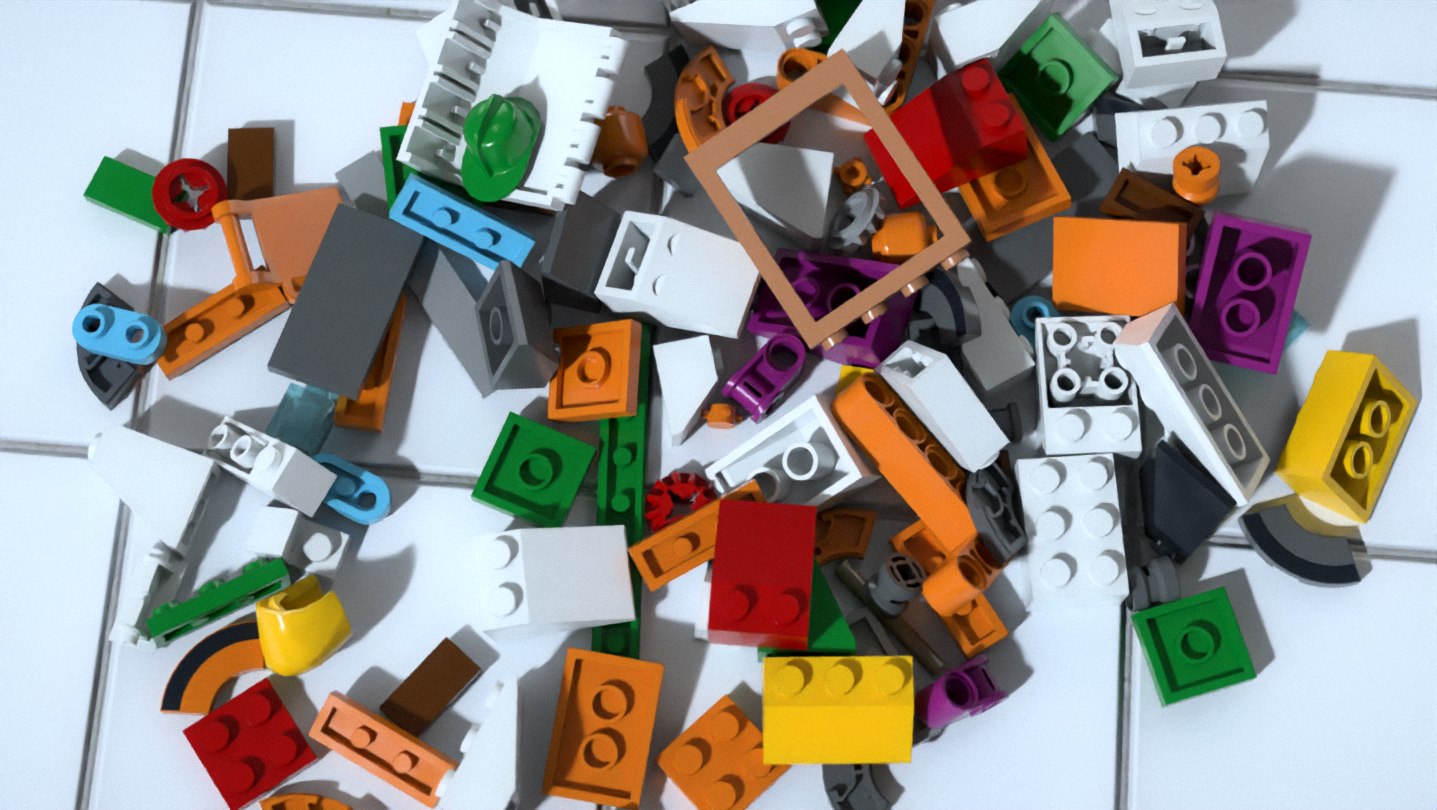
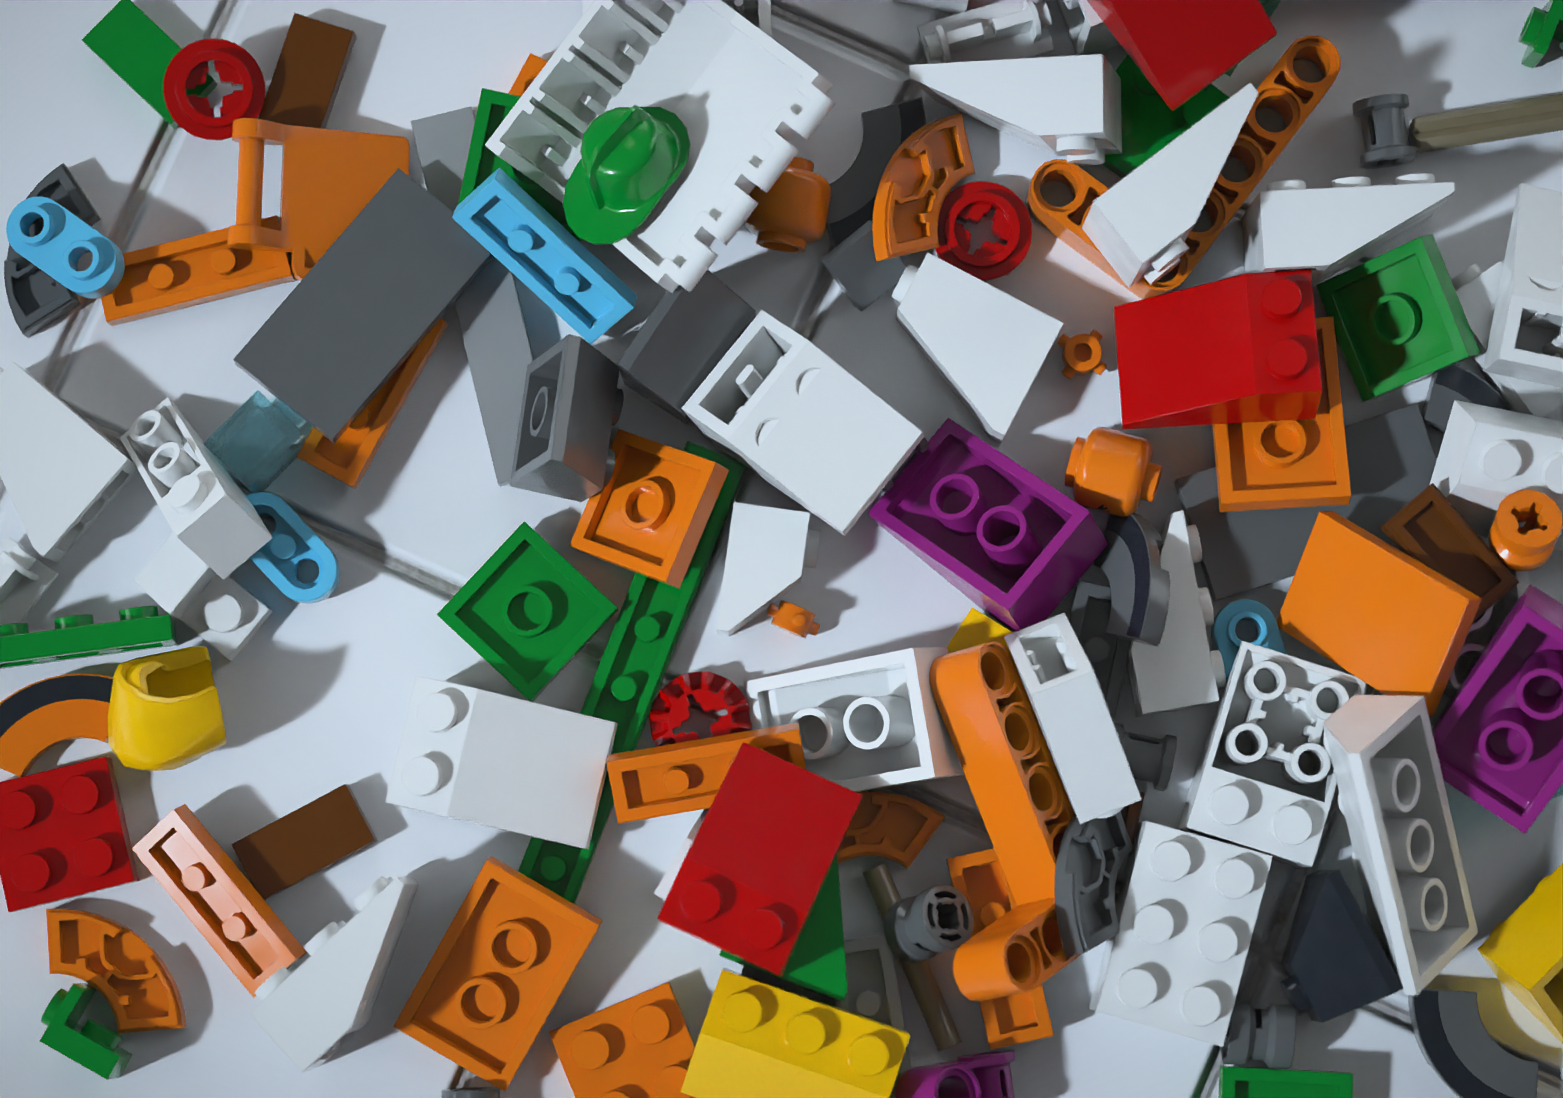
camera: 25 degrees right, 10 degrees up
(761, 383) = (865, 592): magenta piece -> none
(773, 114) = (1086, 242): nougat window -> none
(856, 220) = (1060, 423): light grey gear -> none

